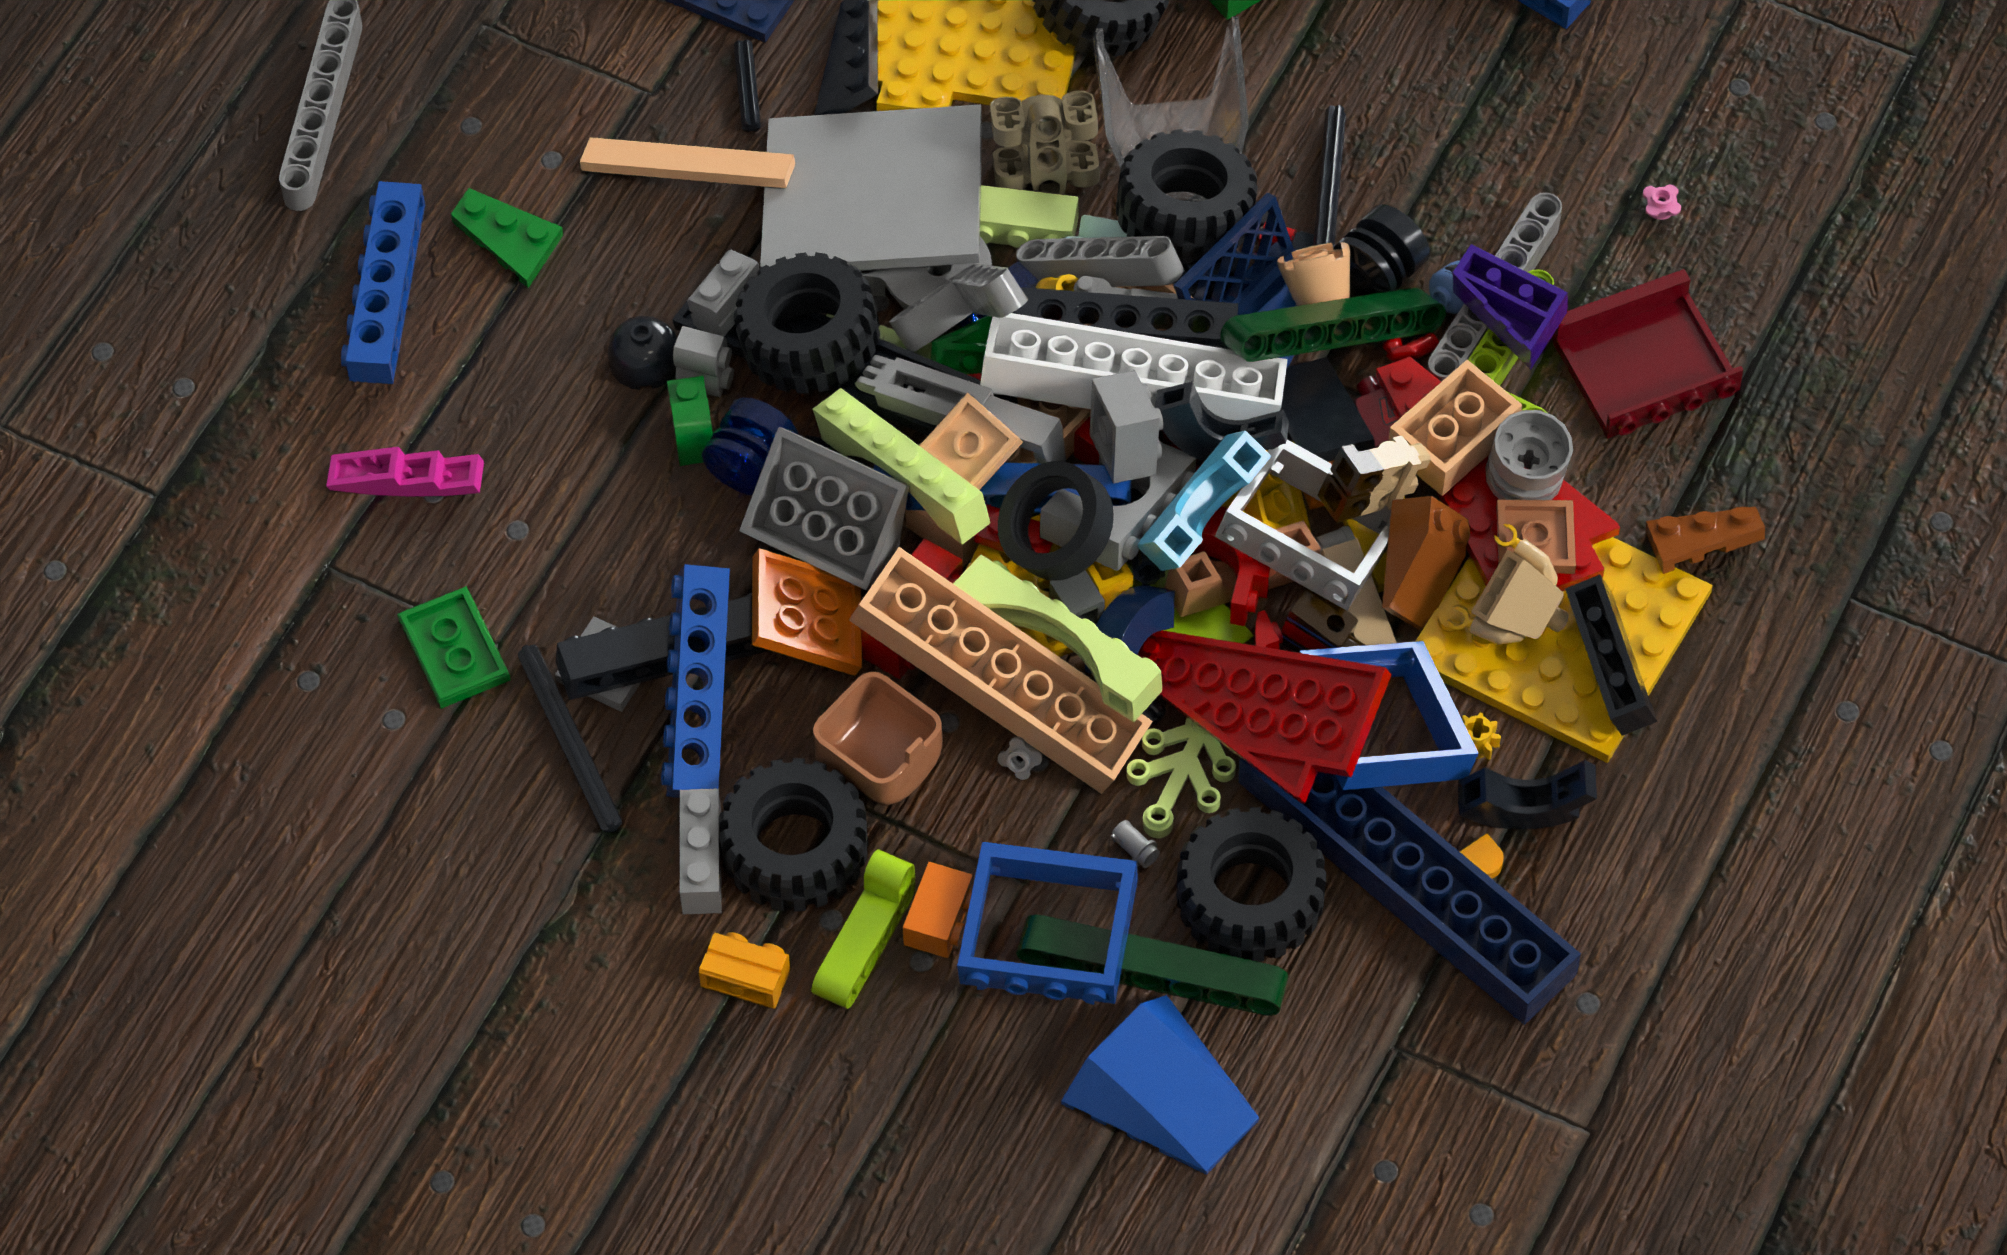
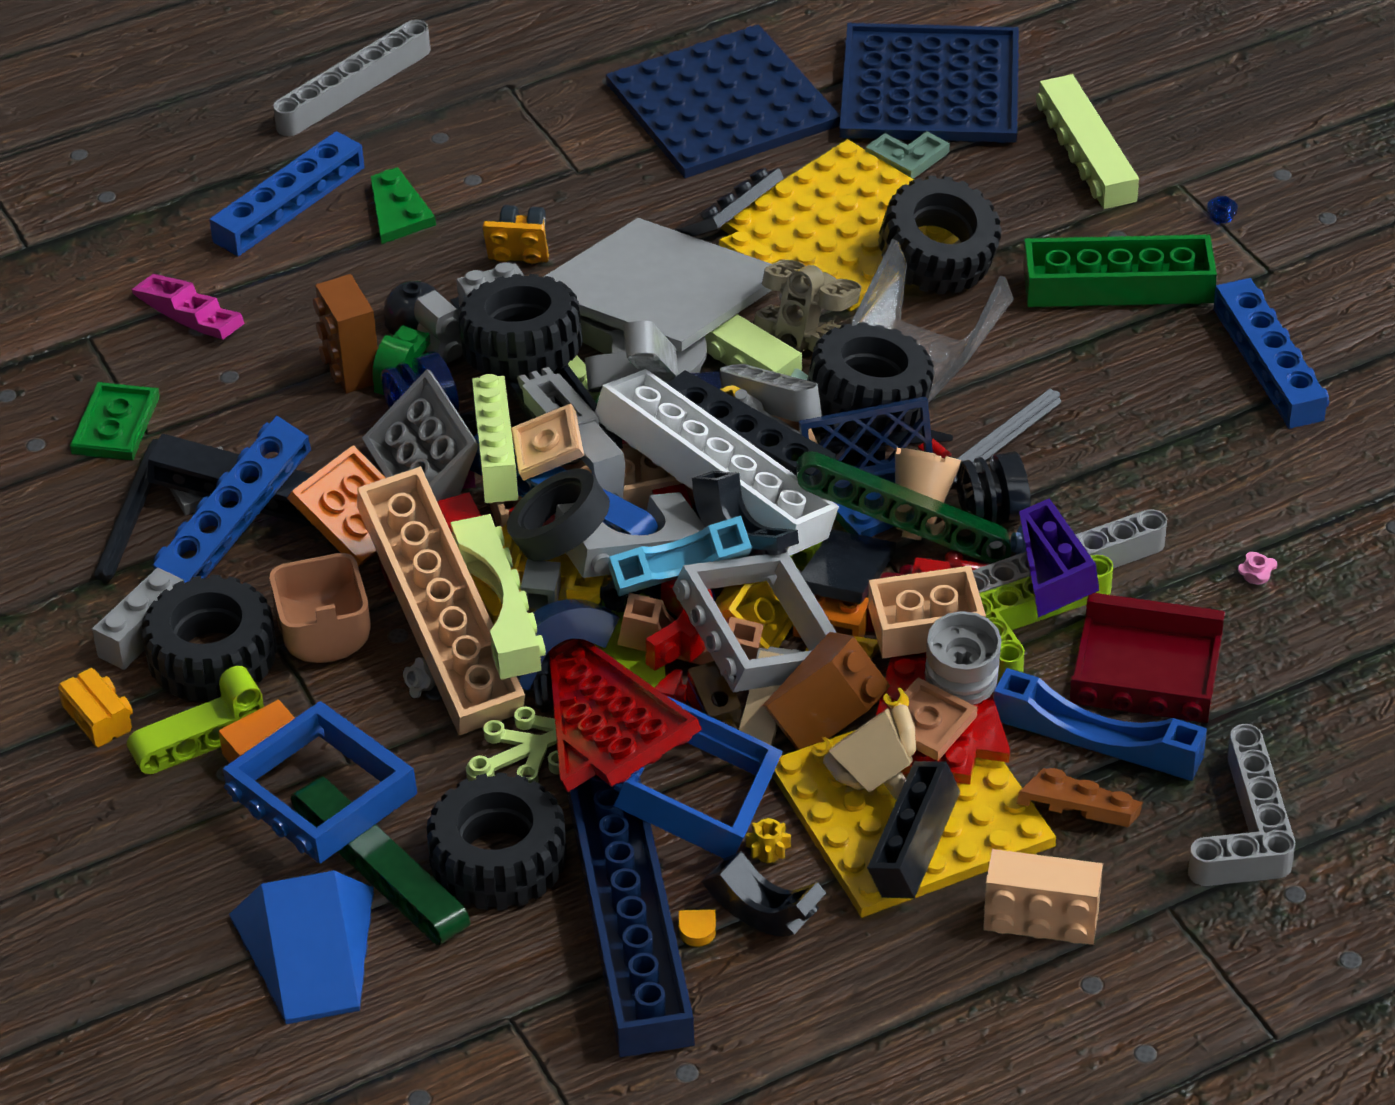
camera: 35 degrees right, 15 degrees down
(629, 422) = (346, 332): none -> dark orange brick
(679, 195) = (517, 236): none -> light orange plate
(687, 162) = (556, 215): light nougat tile -> none
(747, 85) = (643, 194): black axle -> none
(1125, 426) = (665, 480): light grey brick -> none
(1135, 844) = (445, 774): light grey pin -> none
(1371, 478) = (823, 603): hips -> none
(1734, 440) = (1162, 745): none -> blue arch
(1762, 655) = (1042, 896): none -> light nougat brick
(1860, 463) = (1270, 844): none -> light grey beam

